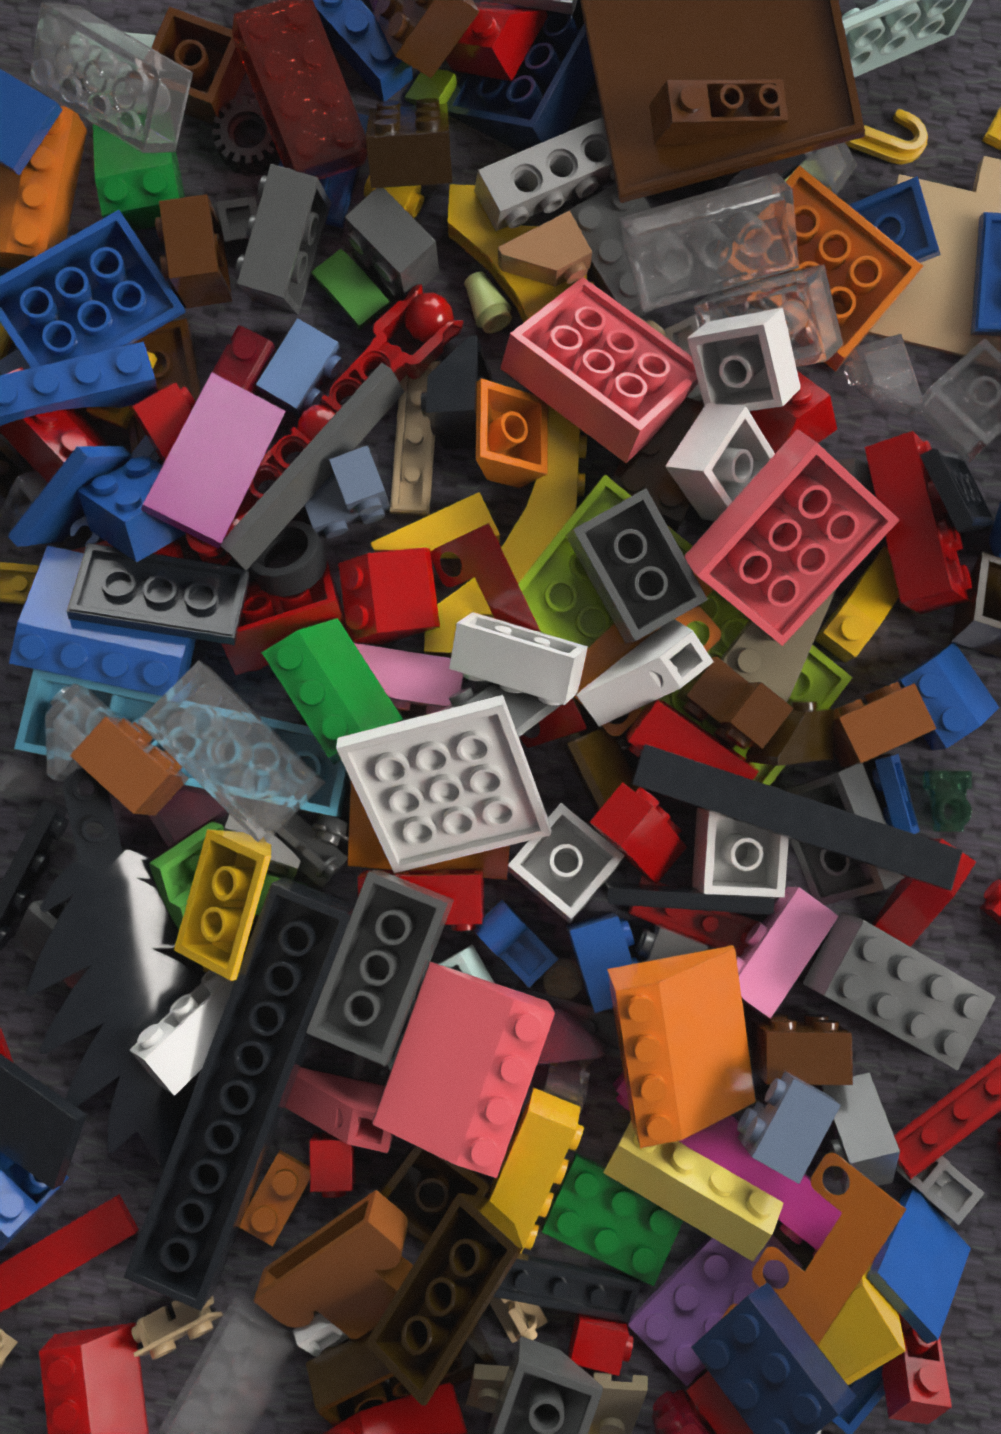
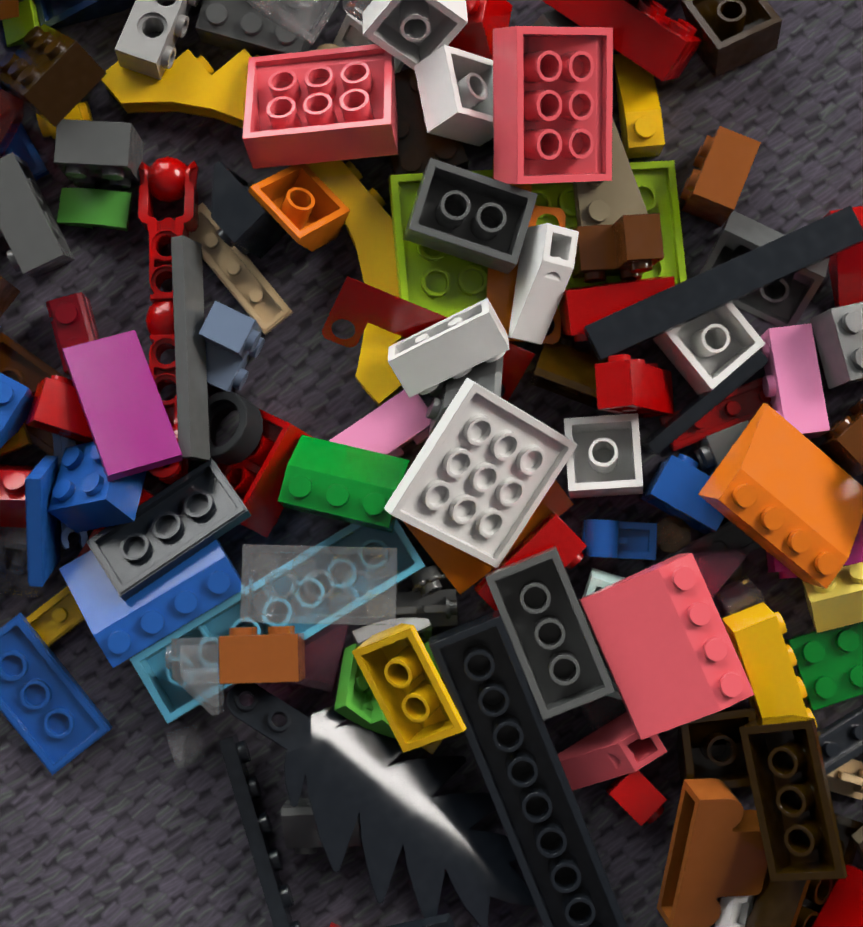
camera: 45 degrees left, 0 degrees up
(181, 1040) = (465, 806): white slope -> none
(276, 1198) = (621, 855): orange plate -> none
(300, 369) = (114, 293): medium blue brick -> none
(389, 595) = (320, 388): red slope -> none
(440, 527) = (310, 316): yellow slope -> none
(487, 303) = (198, 134): yellowish green cone -> none
(548, 253) = (212, 61): medium nougat slope -> none
(801, 738) = (681, 230): dark brown slope -> none
(891, 780) = (761, 204): blue plate -> none
(948, 789) = (804, 175): clear green plate -> none
(951, 695) = (748, 111): blue slope -> none

